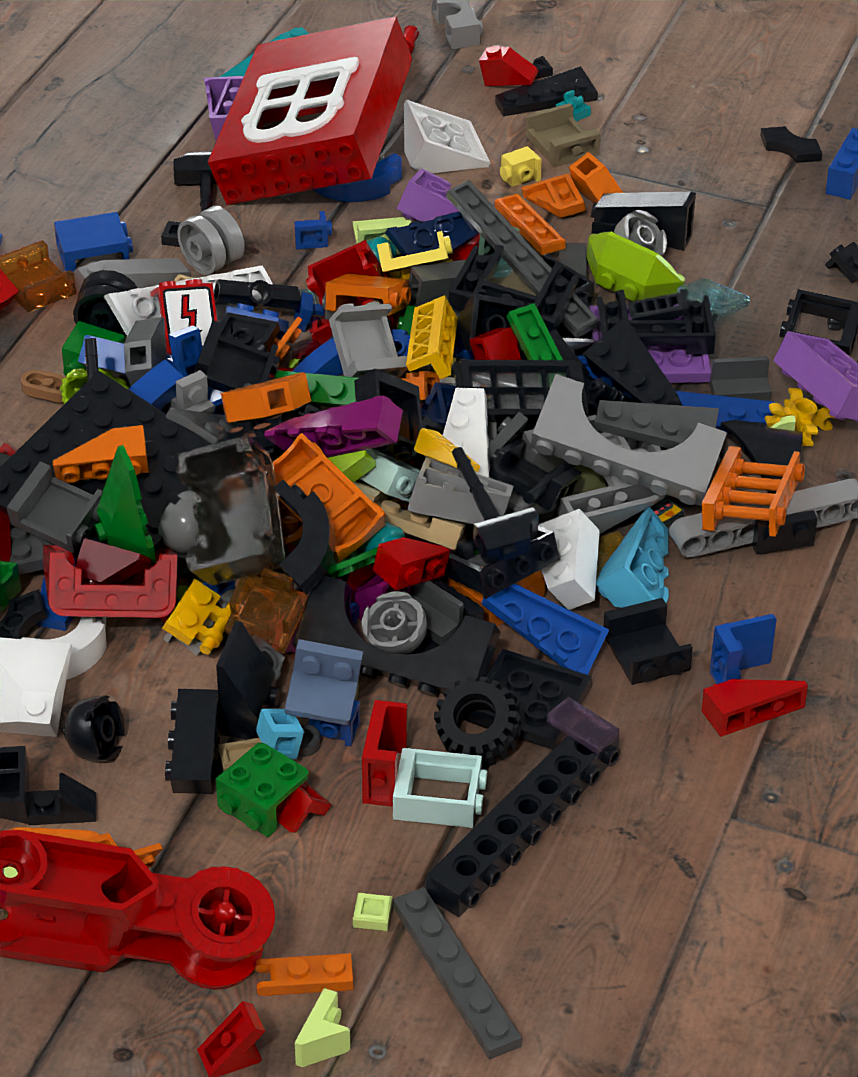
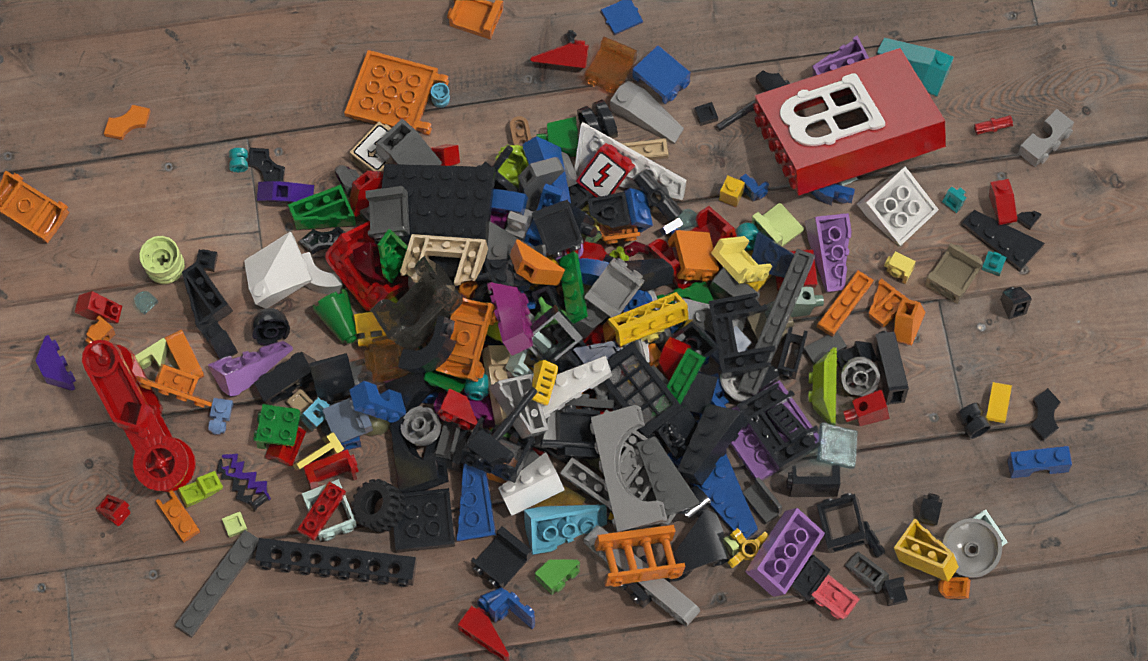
camera: 60 degrees right, 25 degrees up
(96, 456) = (437, 216): orange slope -> none
(136, 790) = (241, 372): none -> medium lavender wedge
(147, 651) = (338, 316): none -> green cone
(163, 498) = (469, 250): none -> tan wedge
(183, 852) = (220, 411): none -> medium blue plate
(210, 240) = (694, 139): light grey wheel -> none
(287, 927) = (201, 489): none -> lime slope
(298, 872) = (261, 486): none -> piece
(303, 246) = (731, 191): none -> yellow brick
(321, 1034) = (138, 542): yellowish green slope -> none
(331, 627) = (385, 406): none -> blue arch
(353, 727) = (331, 443): none -> light yellow fence
(440, 783) = (316, 520): none -> red tile
(471, 100) = (955, 199): none -> teal tile
(583, 725) = (404, 558): clear purple tile -> none
(637, 104) = (1015, 302): none -> black slope
(688, 259) = (868, 409): none -> red torso
(701, 675) = (488, 598): none -> blue cone
(710, 599) = (556, 573): none -> bright green slope
(750, 332) = (814, 485): none -> black panel
(755, 165) = (999, 402): none -> yellow slope
(771, 184) = (973, 420): none -> black wheel

